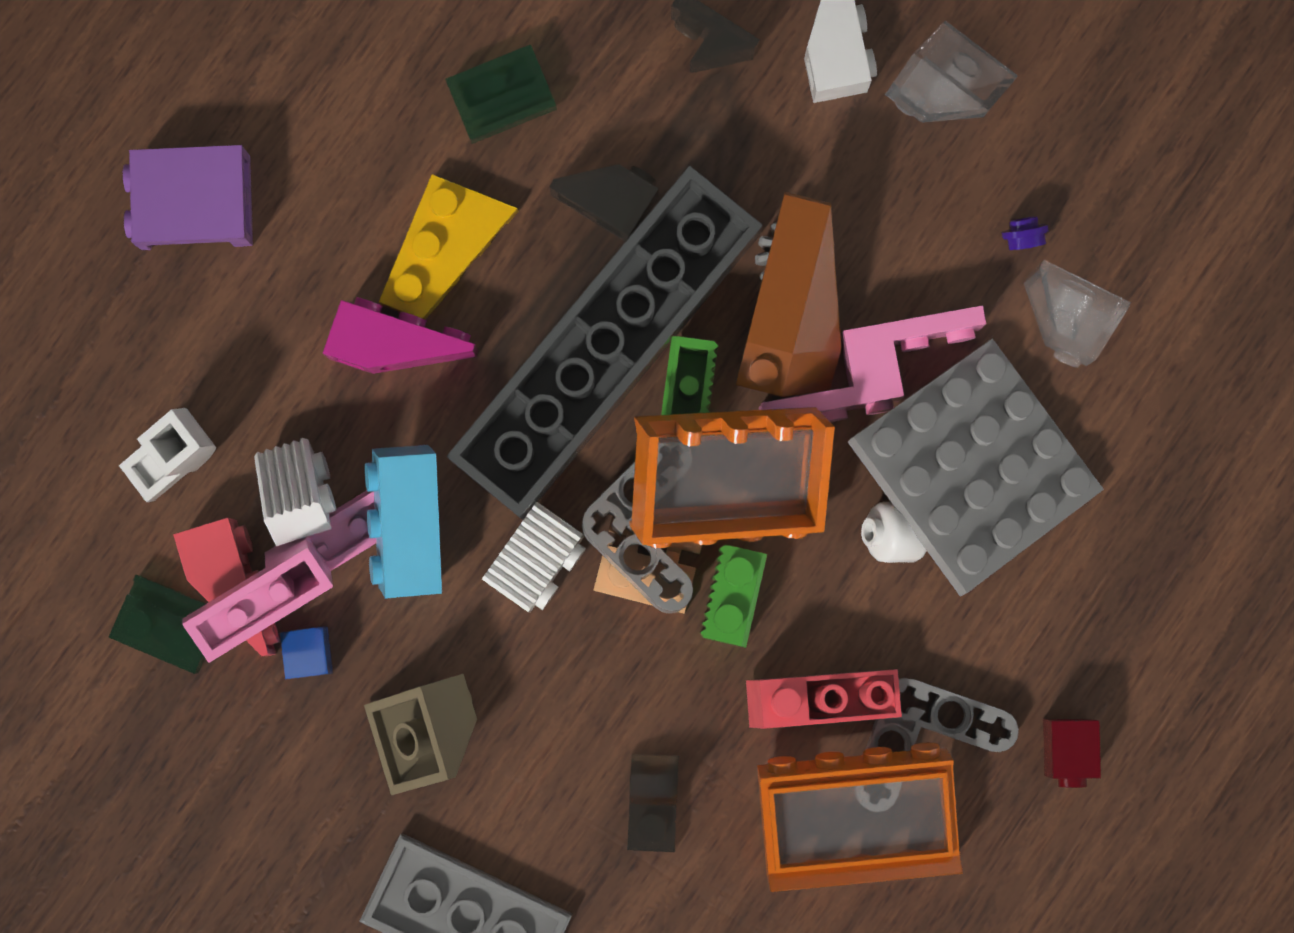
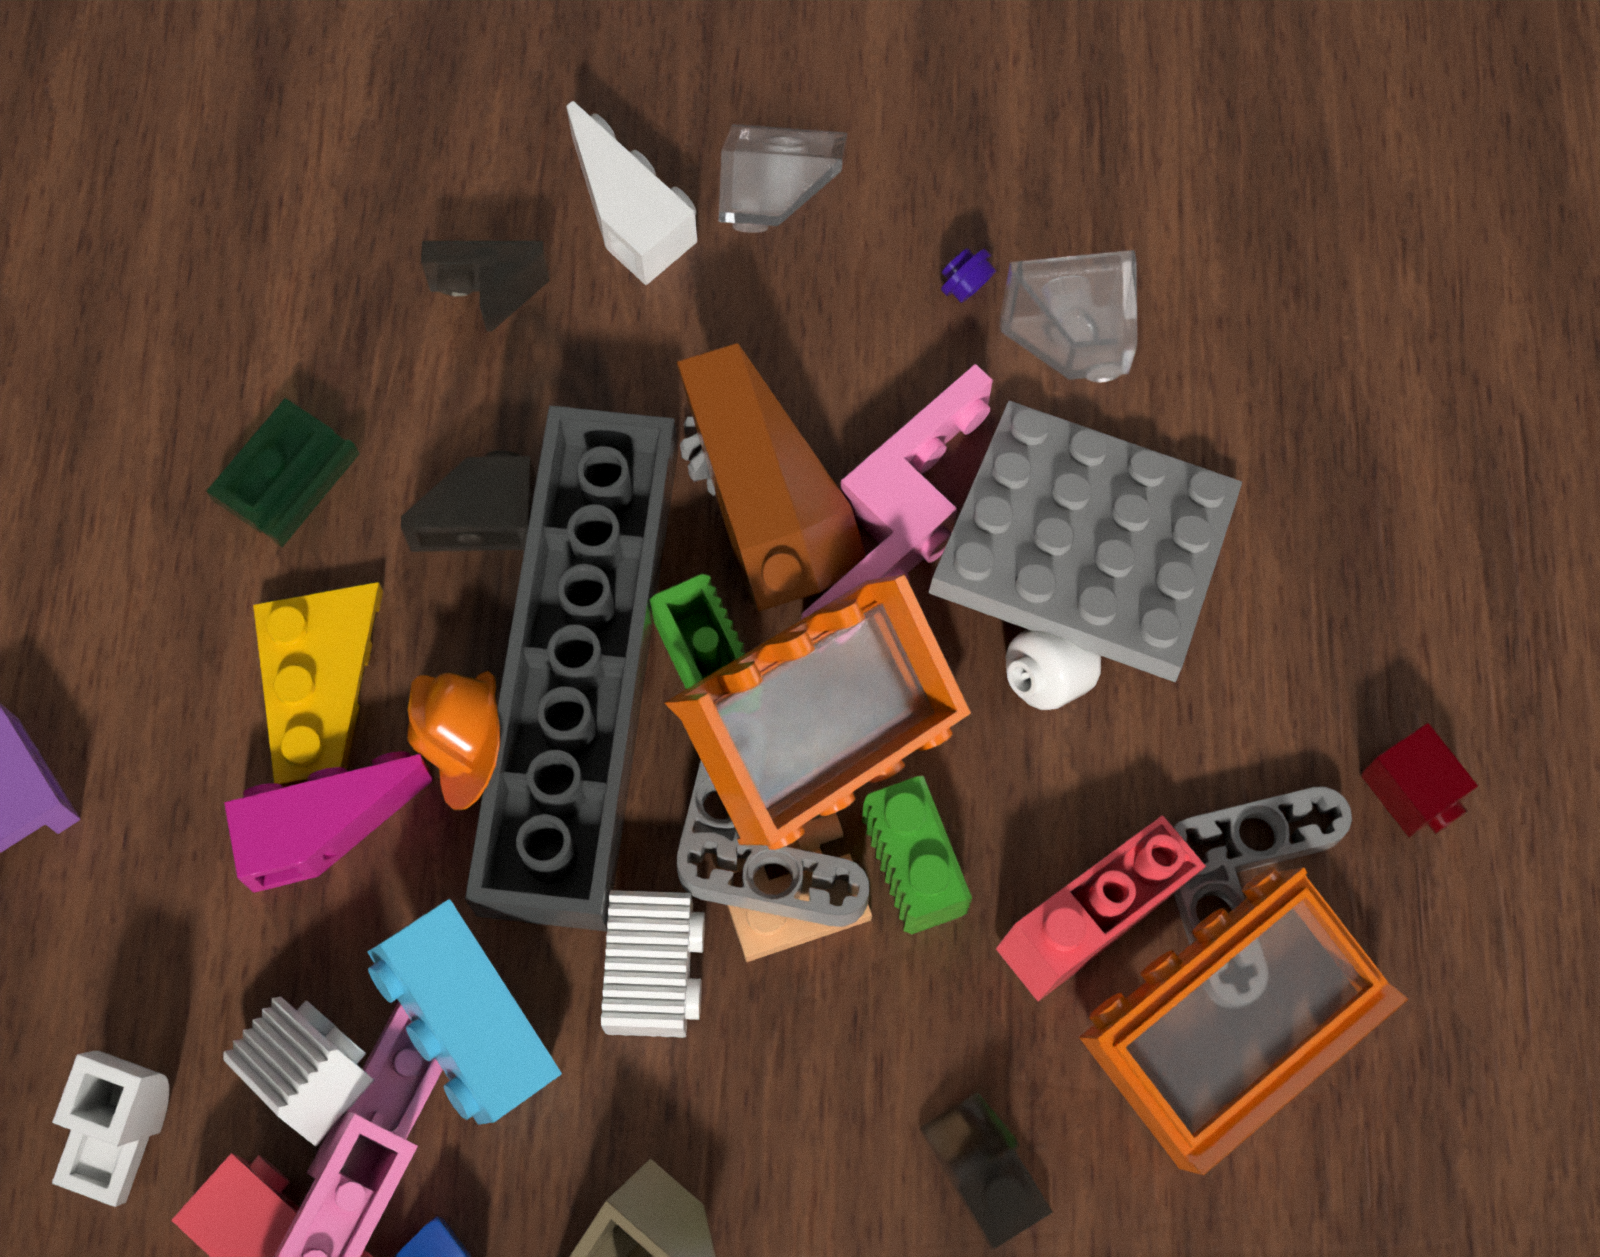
camera: 35 degrees left, 15 degrees down
(506, 343) = (457, 731): none -> orange piece

